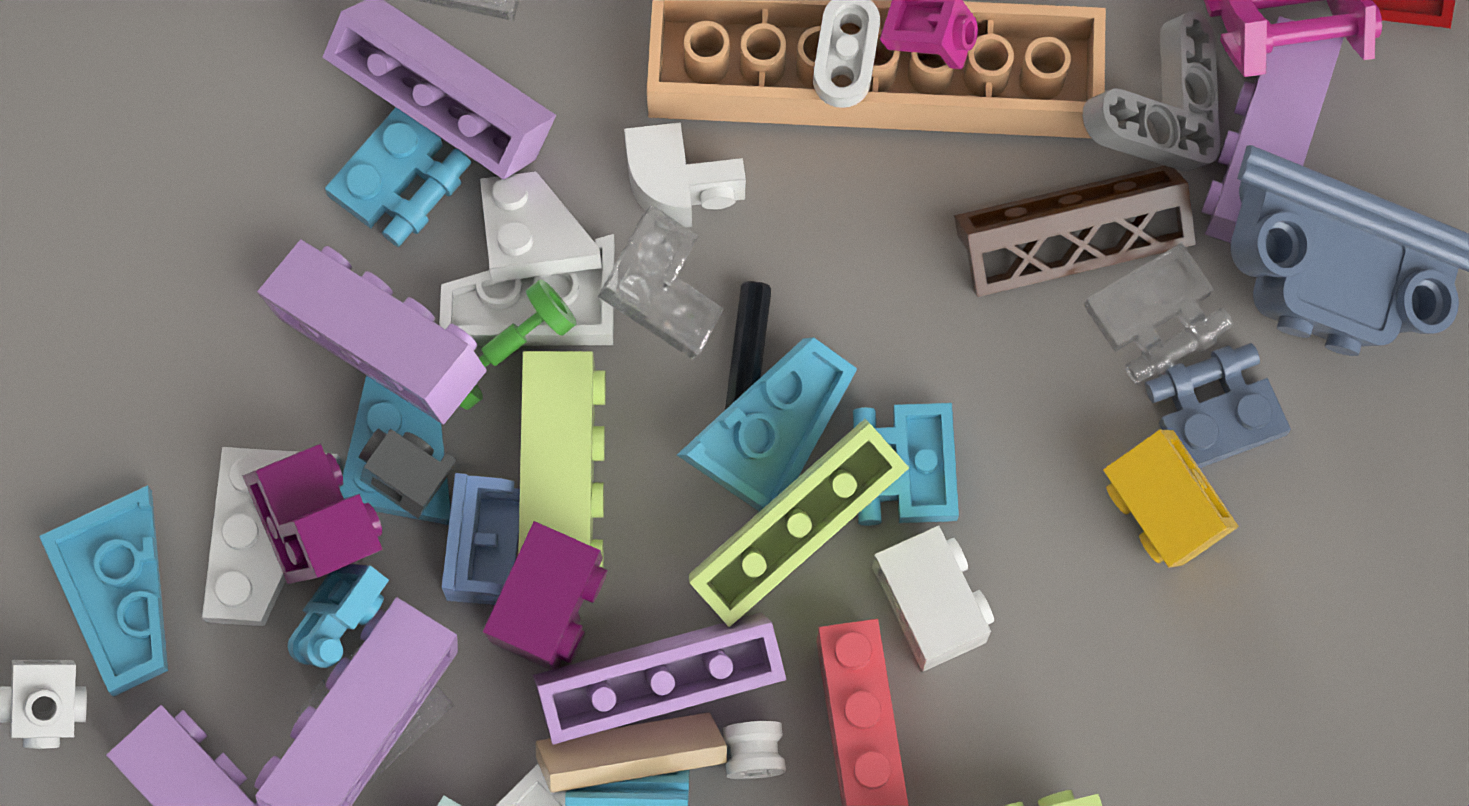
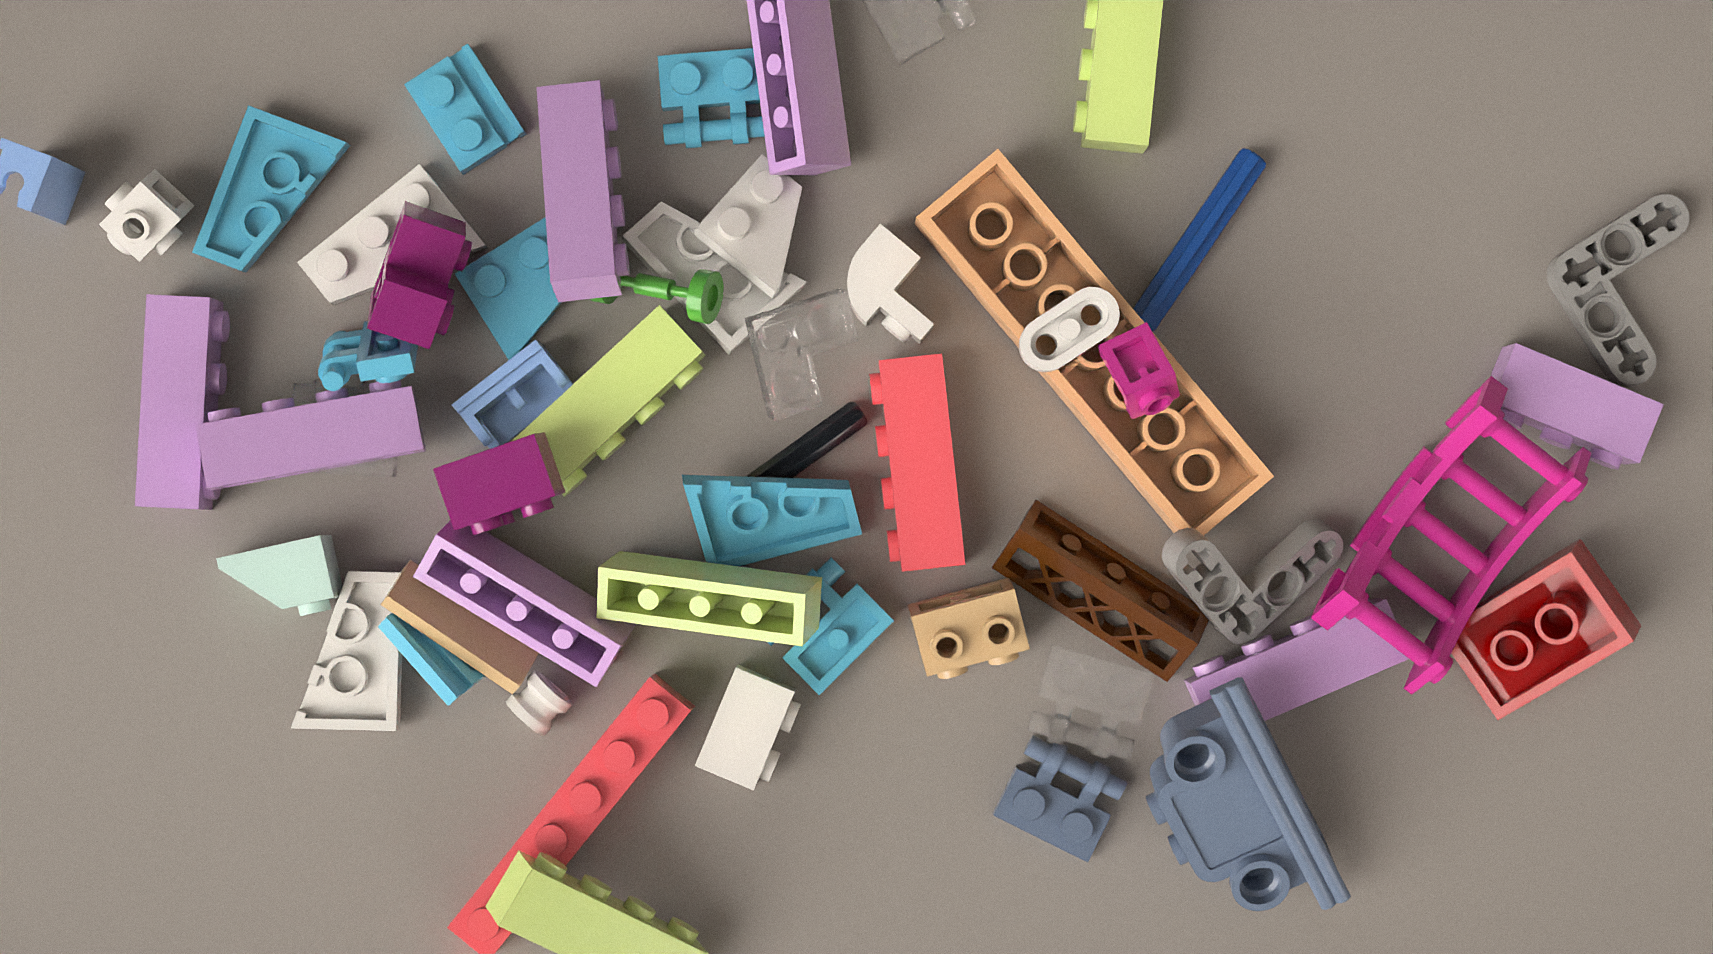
camera: 55 degrees right, 15 degrees up
(215, 375) = (465, 109): none -> medium azure plate
(404, 469) = (506, 304): dark grey brick -> none
(842, 273) = (920, 463): none -> coral brick
(1012, 350) = (969, 628): none -> tan brick
(1168, 499) = (958, 826): yellow brick -> none

